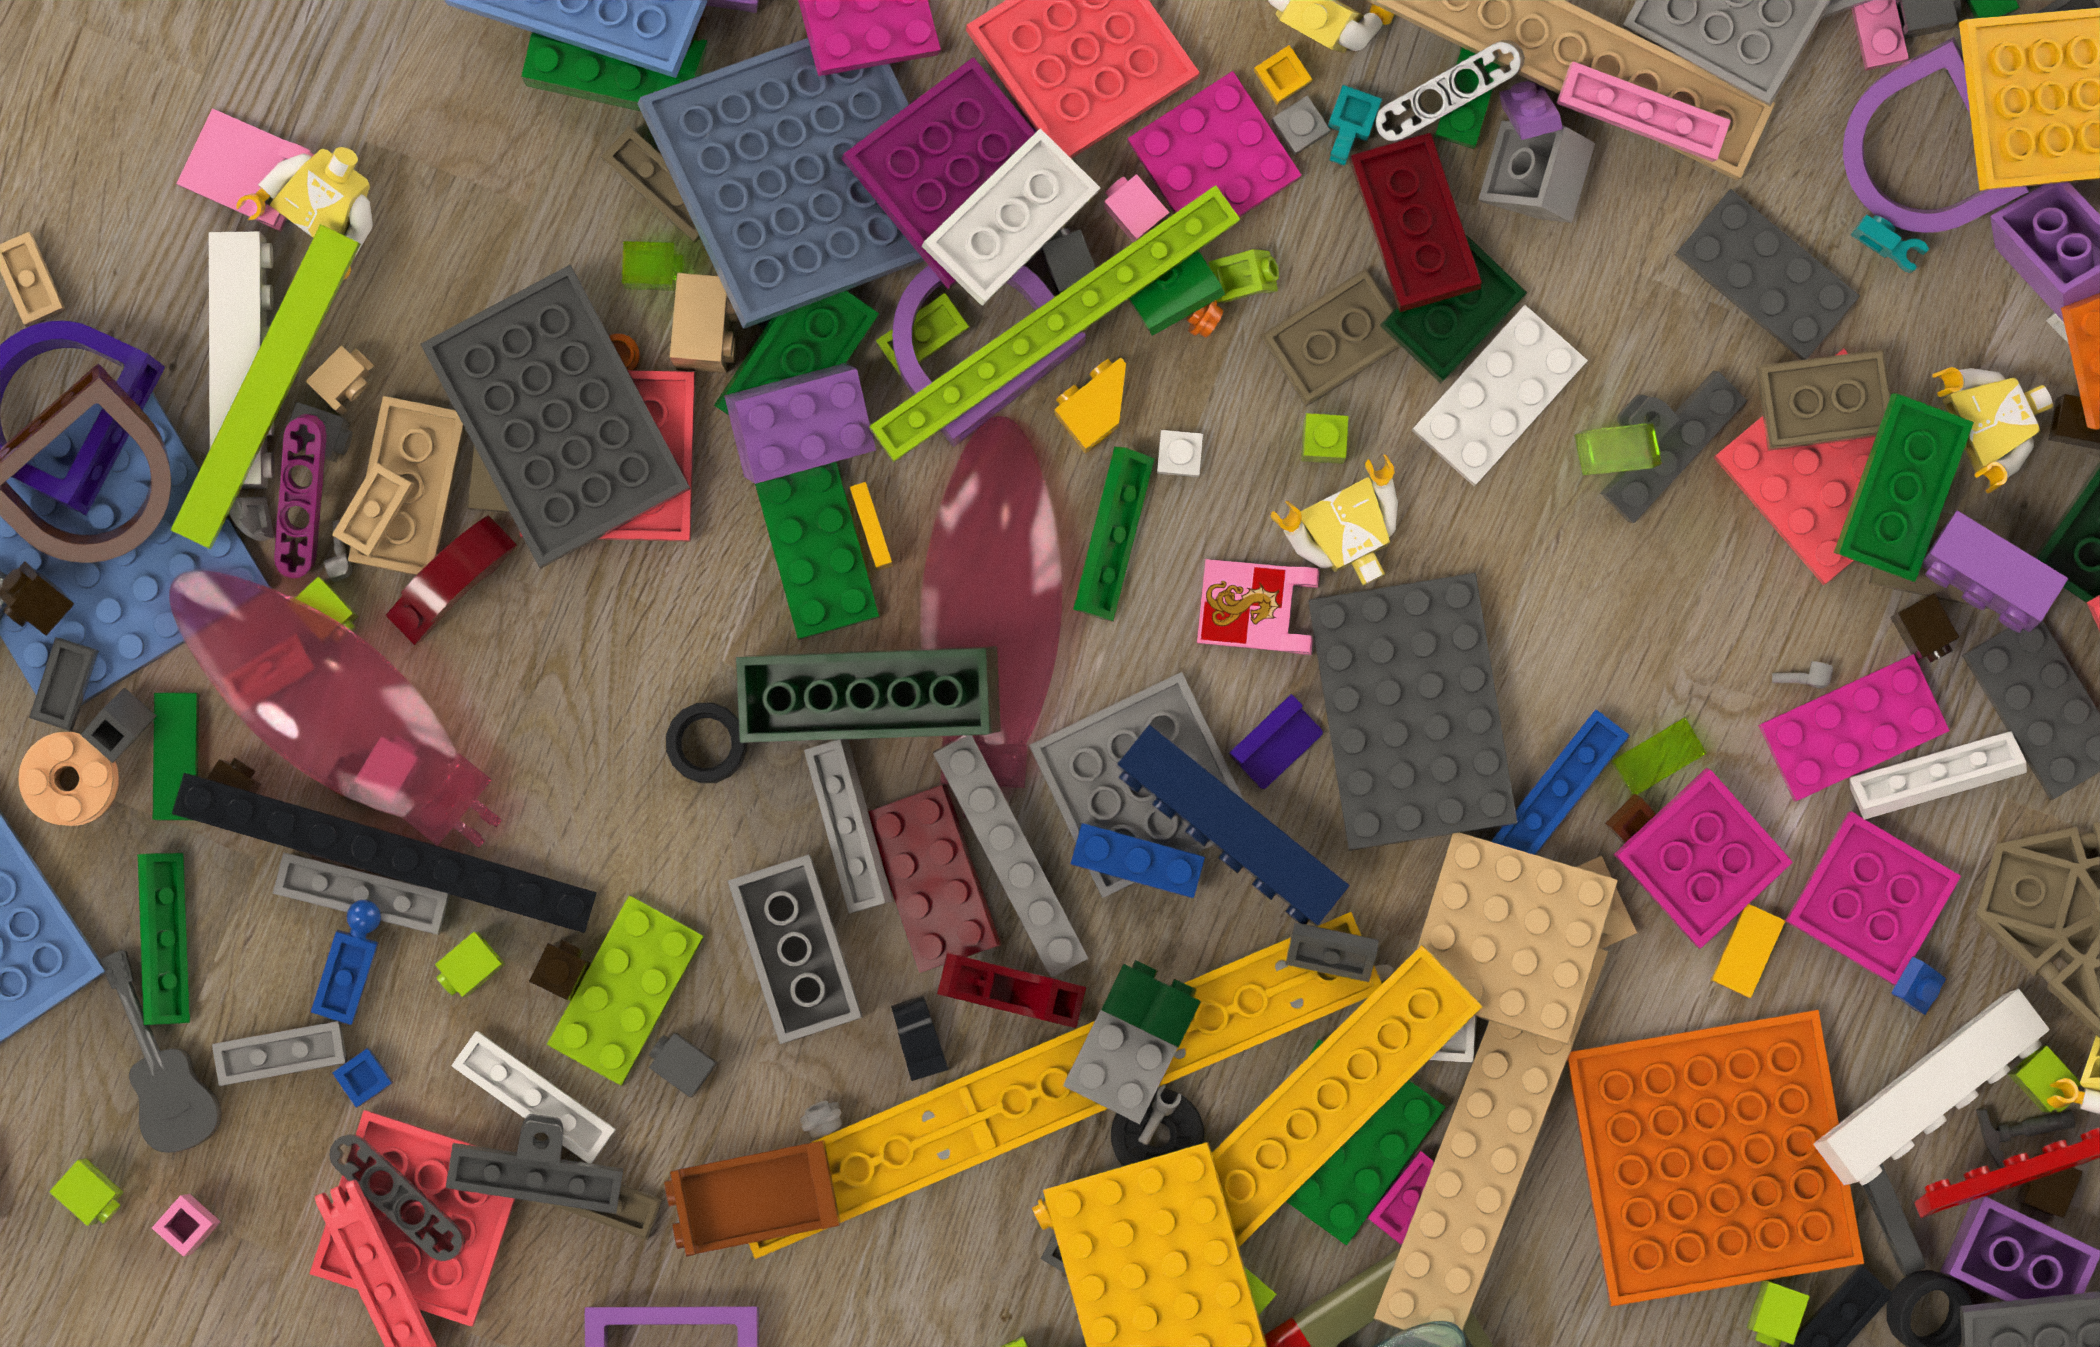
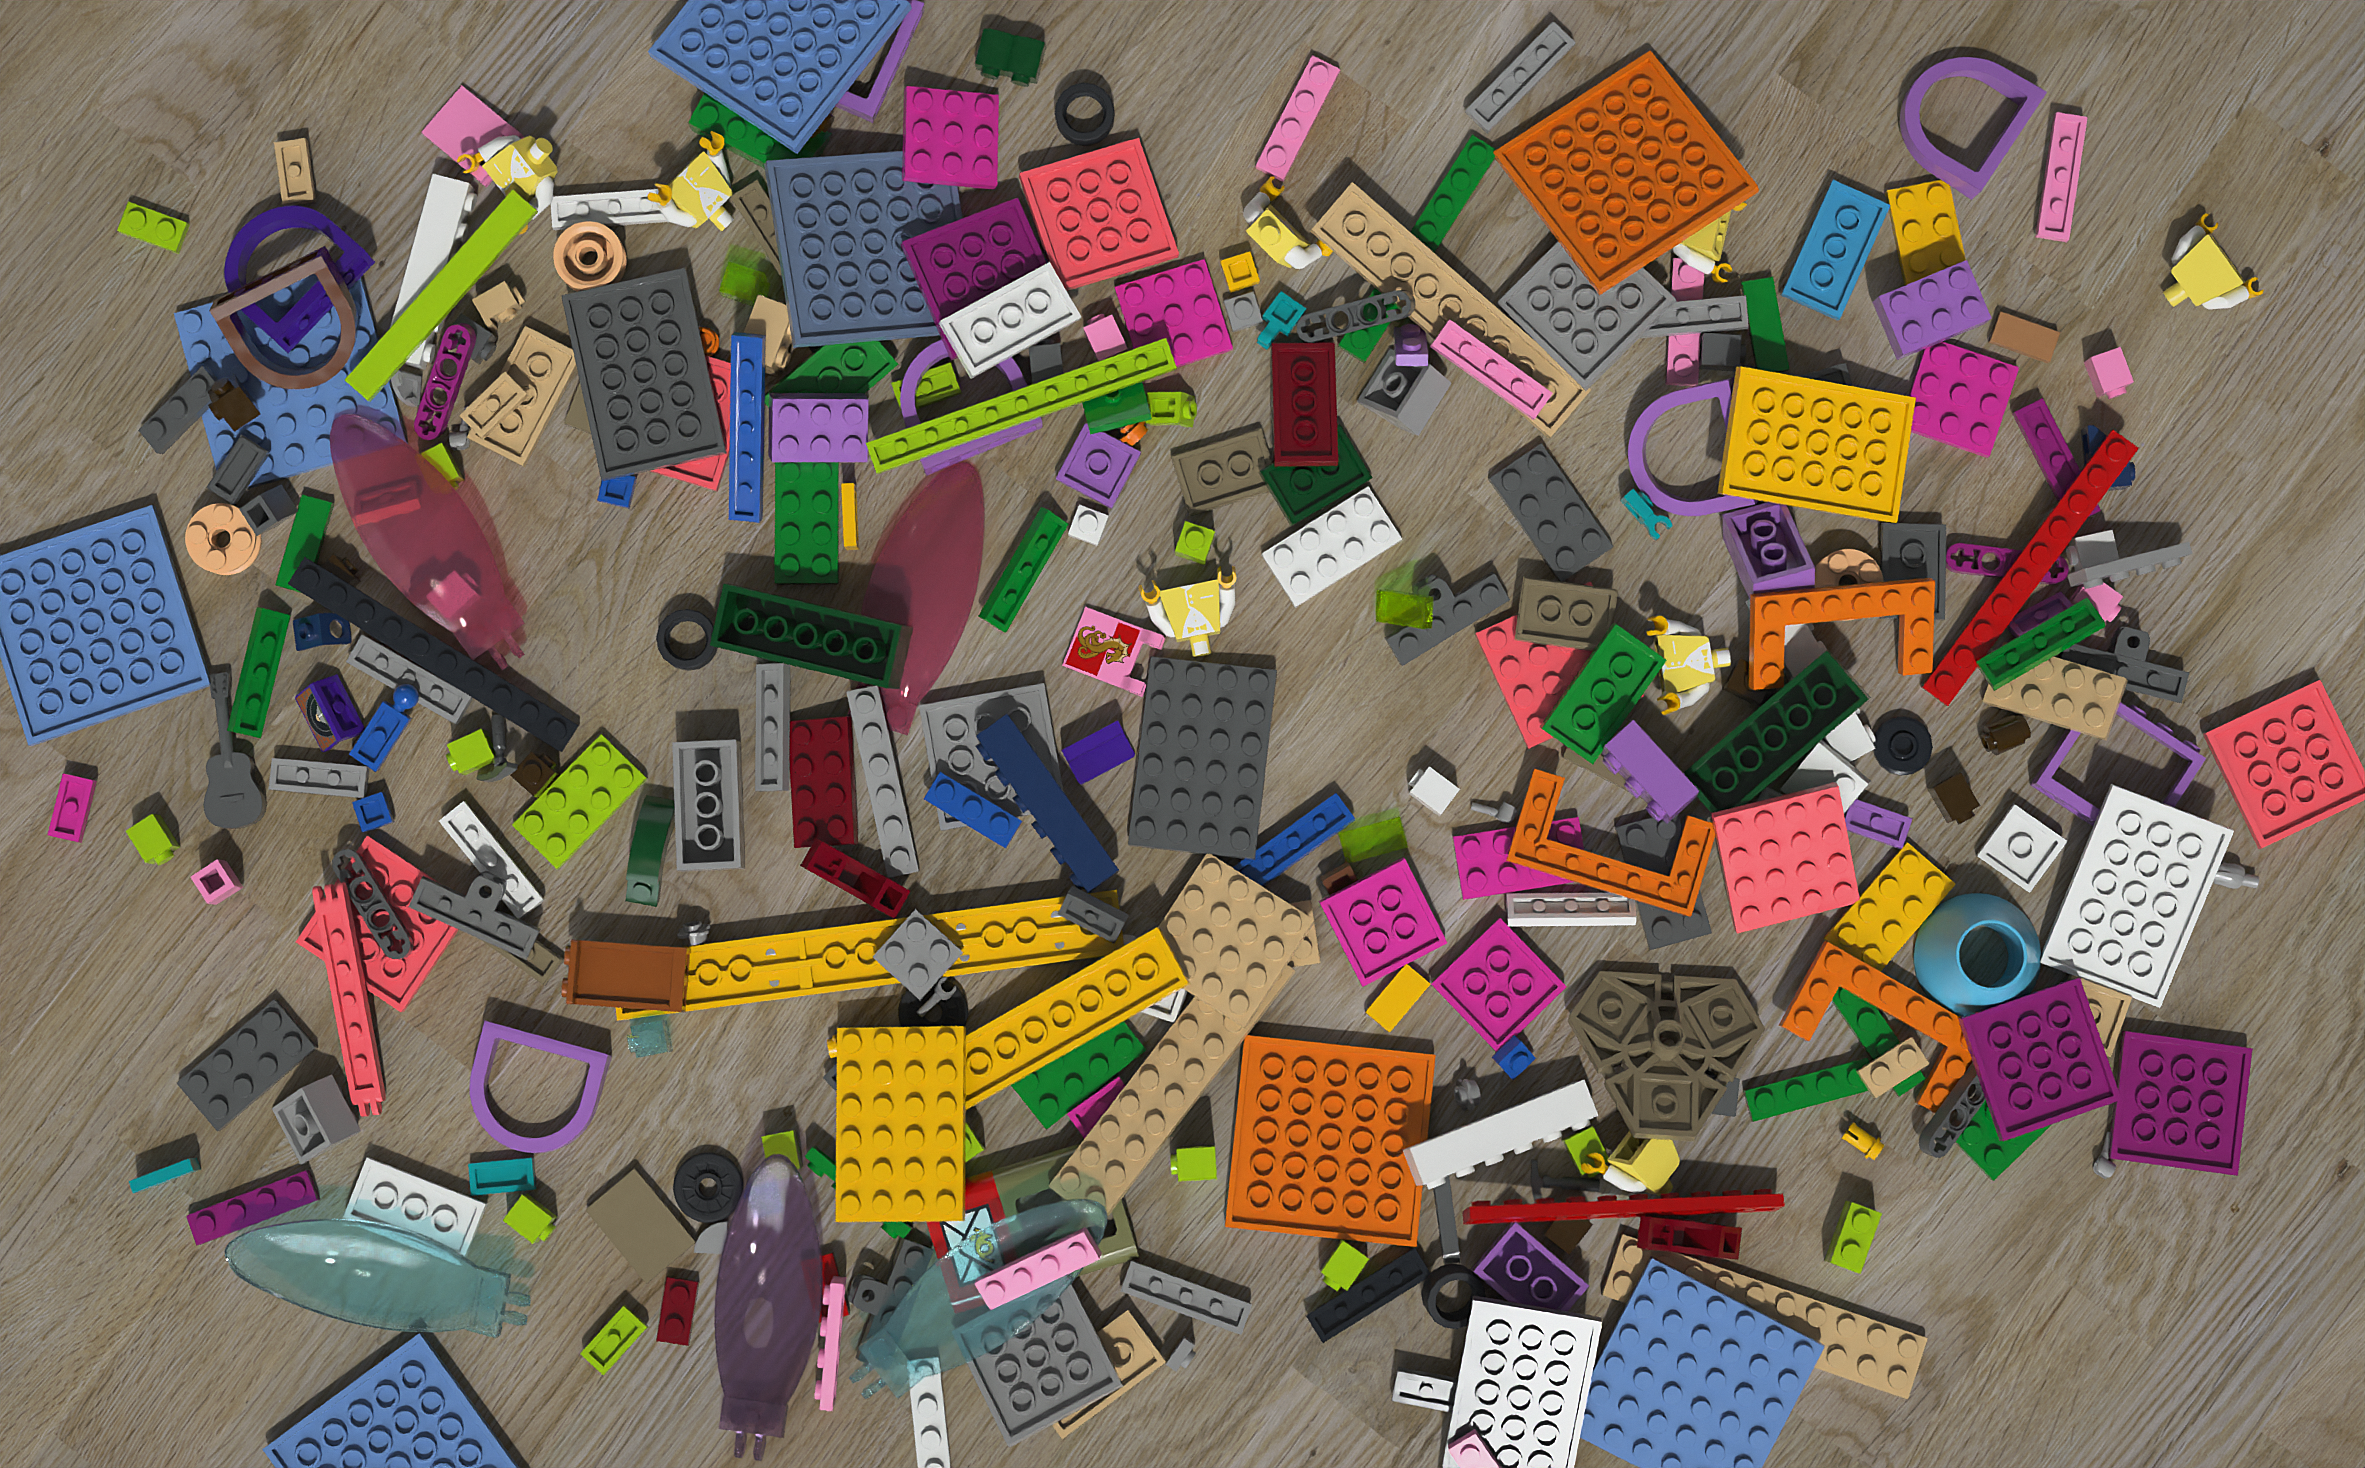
camera: 20 degrees right, 0 degrees up
(222, 865) = (315, 631): none -> dark blue bracket
(269, 965) = (329, 712): none -> dark purple panel
(426, 263) = (578, 241): none -> light nougat wheel
(449, 578) = (536, 468): dark red arch -> none
(456, 213) = (605, 208): none -> white plate
(514, 974) = (502, 767): none -> dark grey piece
(558, 158) = (698, 189): none -> torso
(562, 577) = (617, 491): none -> blue plate
(681, 1063) = (604, 865): dark grey brick -> none
(709, 447) = (747, 427): none -> blue plate
(735, 1028) = (649, 850): none -> dark green arch
(803, 1271) = (649, 1039): none -> clear light blue brick
(919, 1038) = (780, 895): black leg -> none
(1094, 409) = (1035, 476): yellow slope -> none
(1152, 1004) = (952, 916): dark green brick -> none
(1172, 374) = (1098, 466): none -> medium lavender plate
(1552, 1235) = (1194, 1163): none -> lime brick
(1718, 671) = (1432, 790): none -> white brick
(1872, 1049) = (1467, 1094): none -> light grey plate
(1926, 629) = (1592, 801): dark brown brick -> none
(2064, 717) = (1535, 851): none -> orange plate

